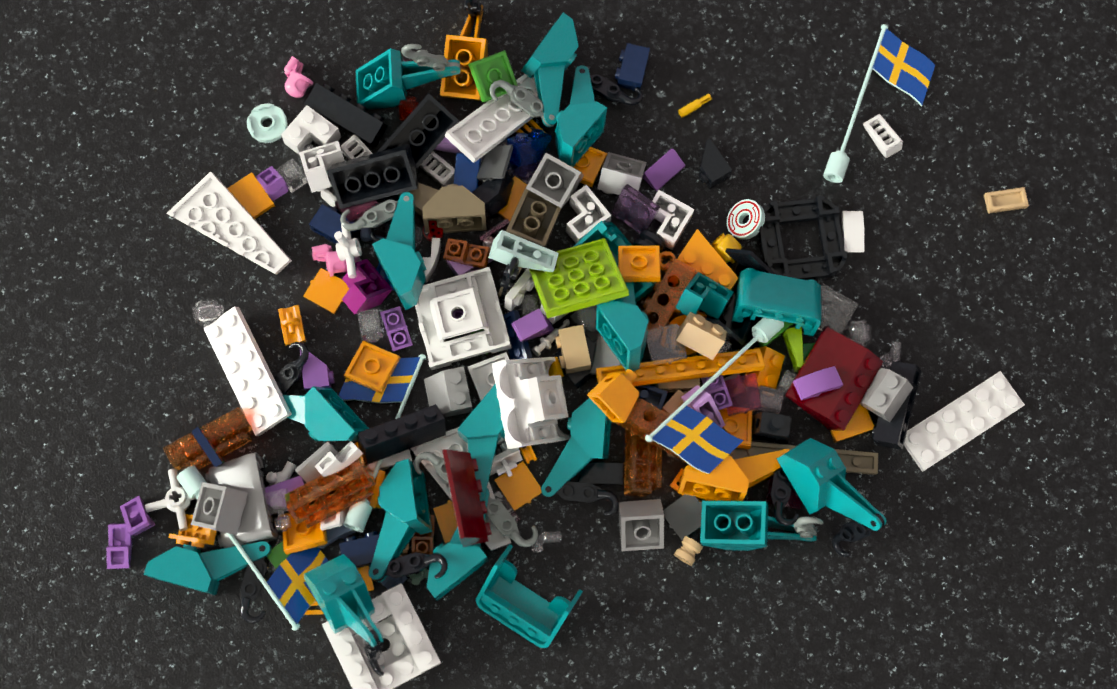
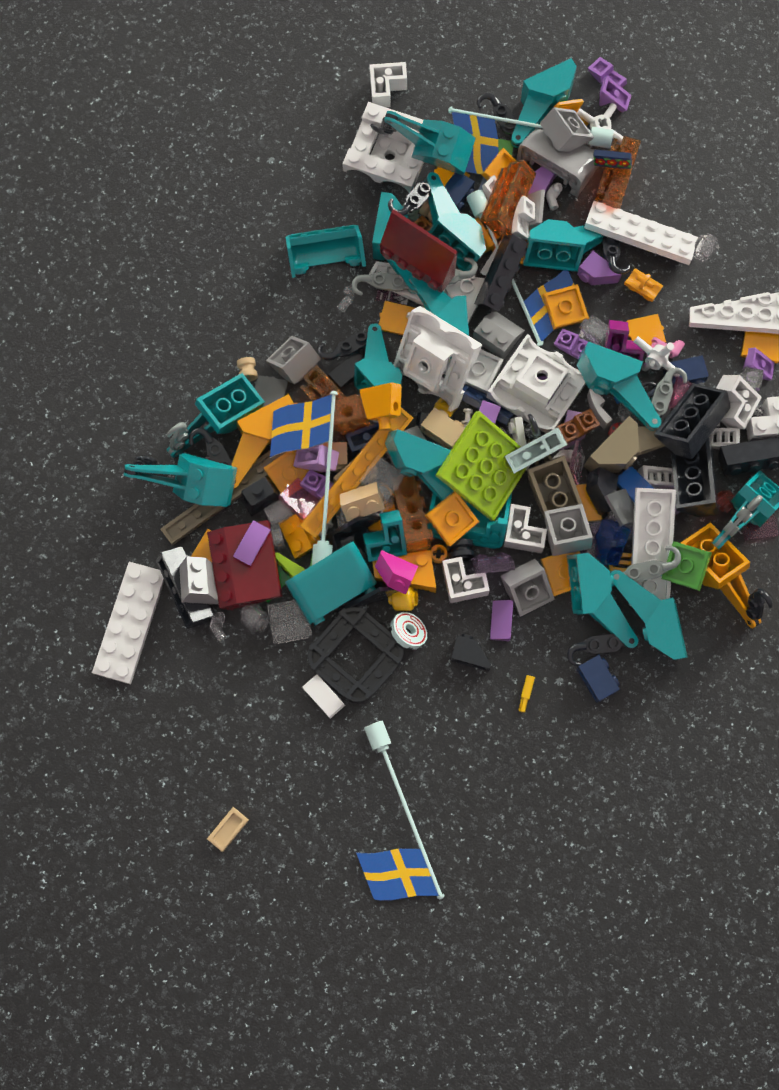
camera: 145 degrees right, 0 degrees up
(277, 504) = (540, 168): clear plate -> none
(723, 258) = (395, 571): none -> dark pink slope
(888, 146) = (348, 792): white slope -> none

